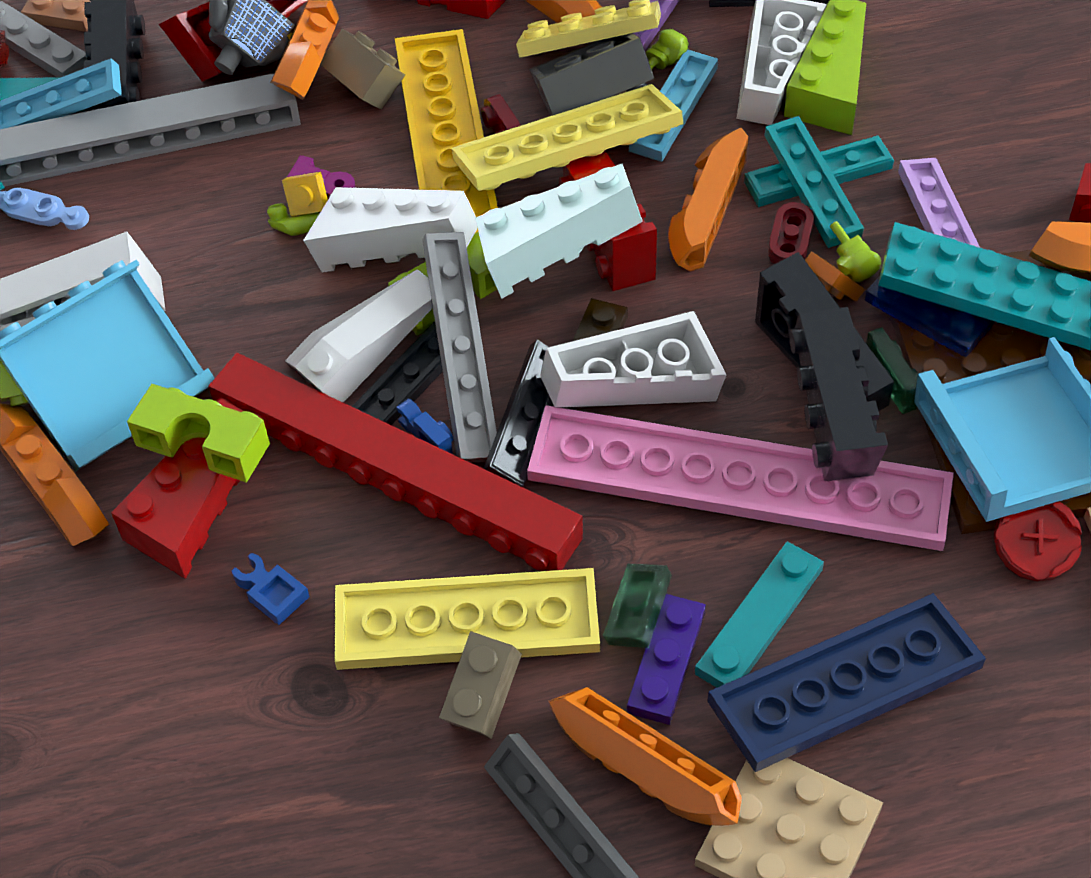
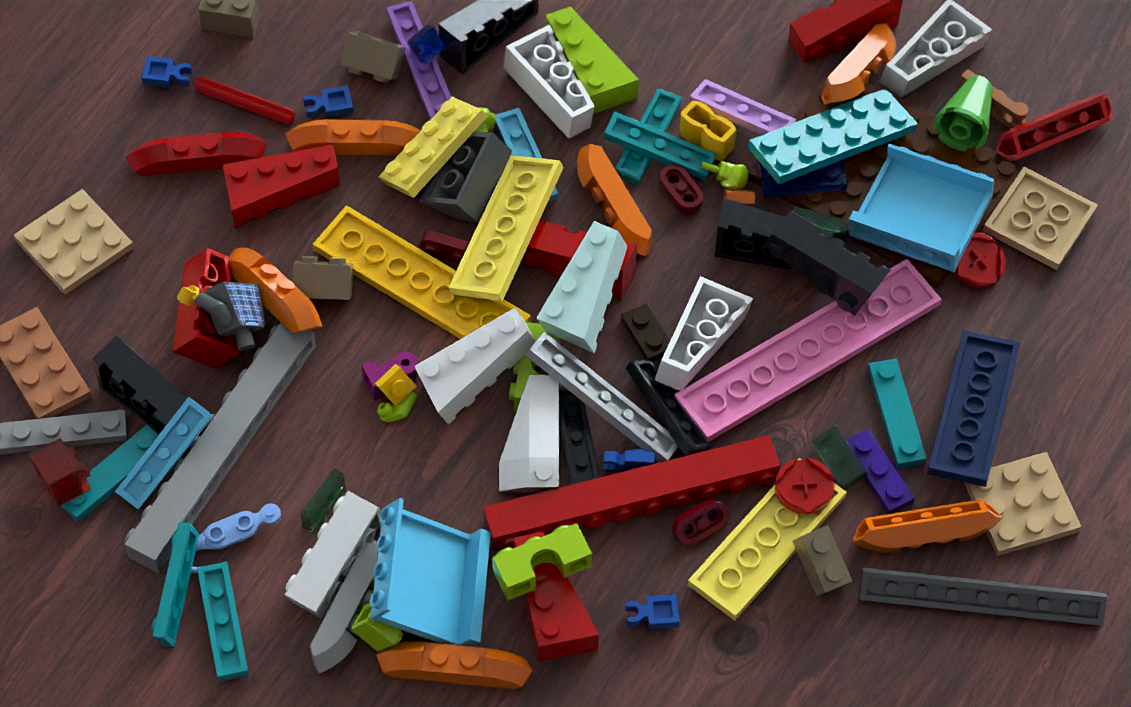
camera: 50 degrees left, 5 degrees up
(147, 234) = (318, 507): none -> clear green plate
(421, 544) = (698, 522): none -> dark red plate
(560, 598) = (804, 486): none -> red tile
(877, 197) = (707, 130): none -> yellow brick

